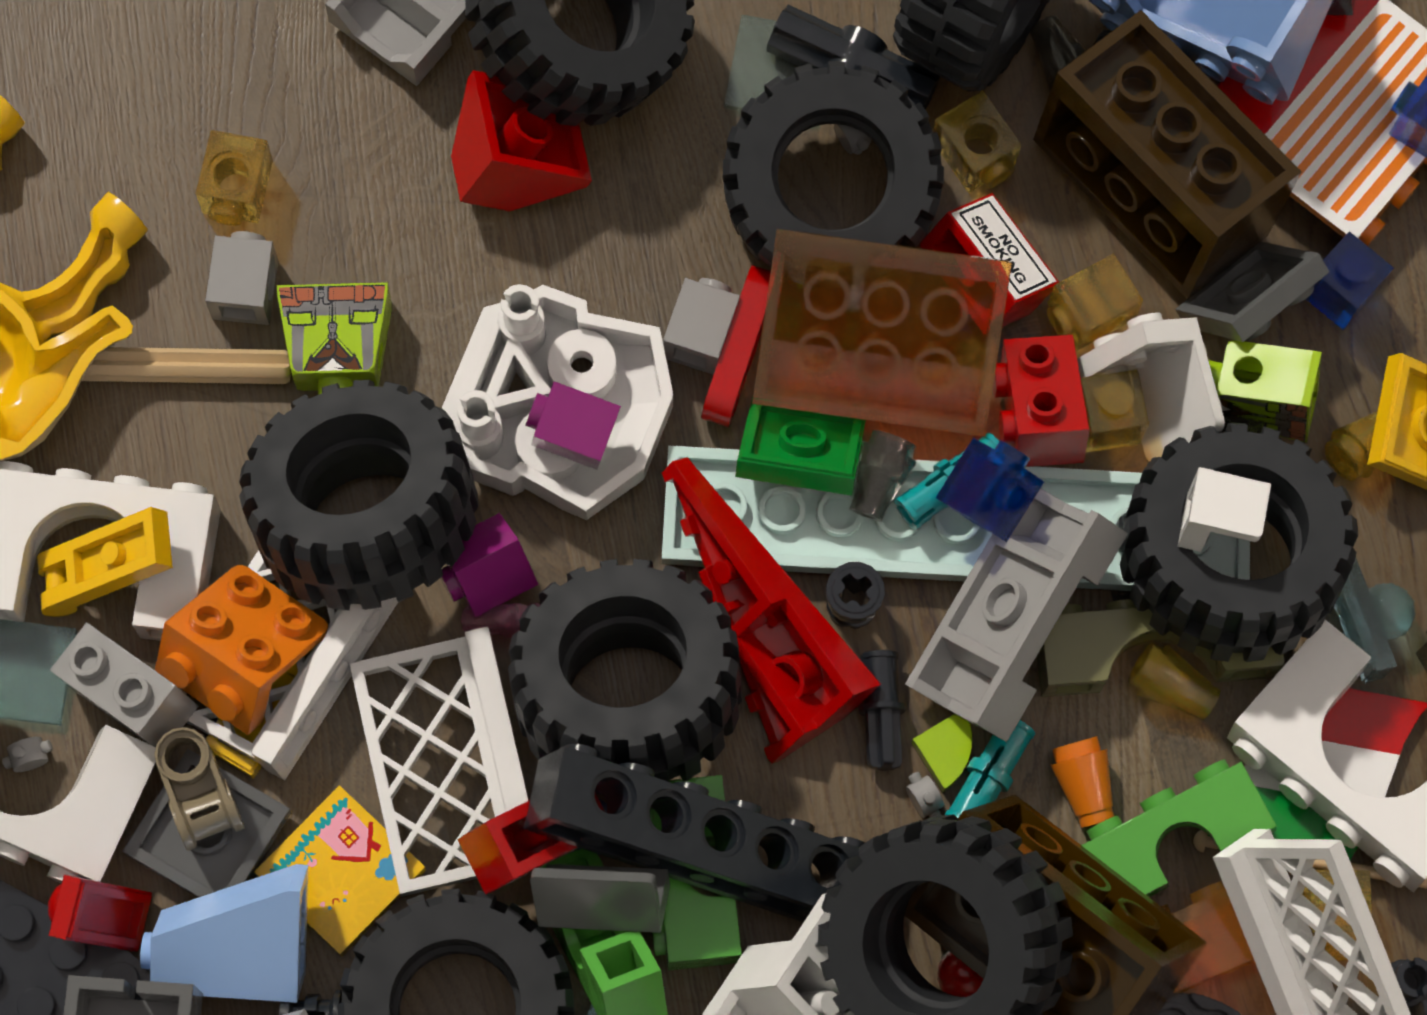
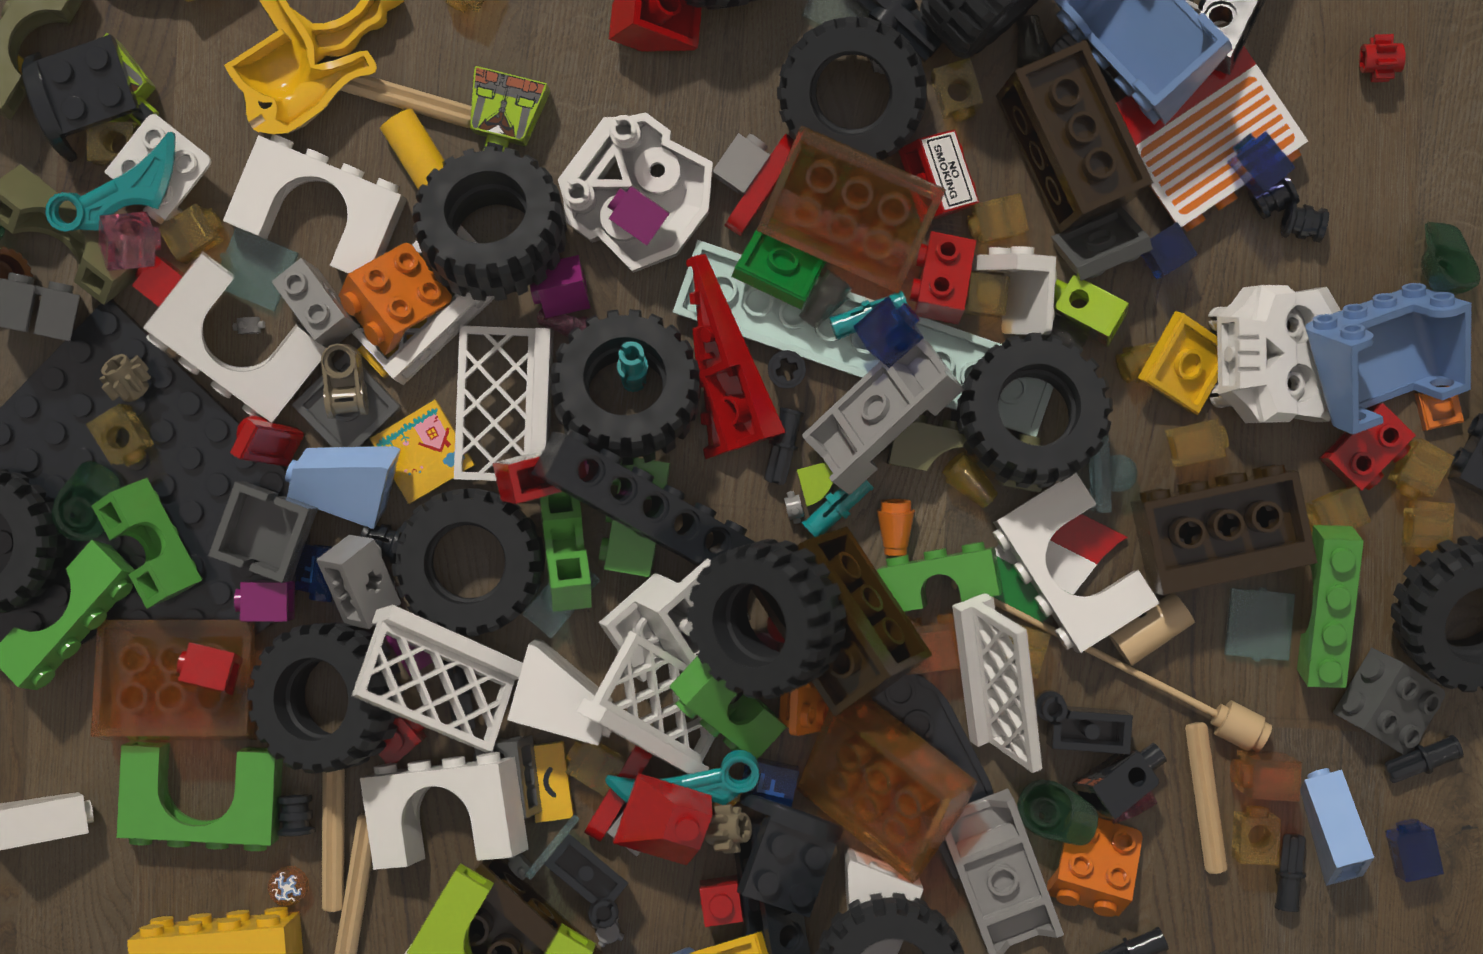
camera: 20 degrees right, 15 degrees up
(104, 561) = (322, 220): yellow plate -> none
(209, 425) = (412, 146): none -> yellow brick
(242, 278) = (456, 50): light grey brick -> none
(600, 897) = (569, 524): dark grey panel -> none
(628, 642) = (632, 367): none -> teal pin
(1223, 506) = (1025, 398): white panel -> none

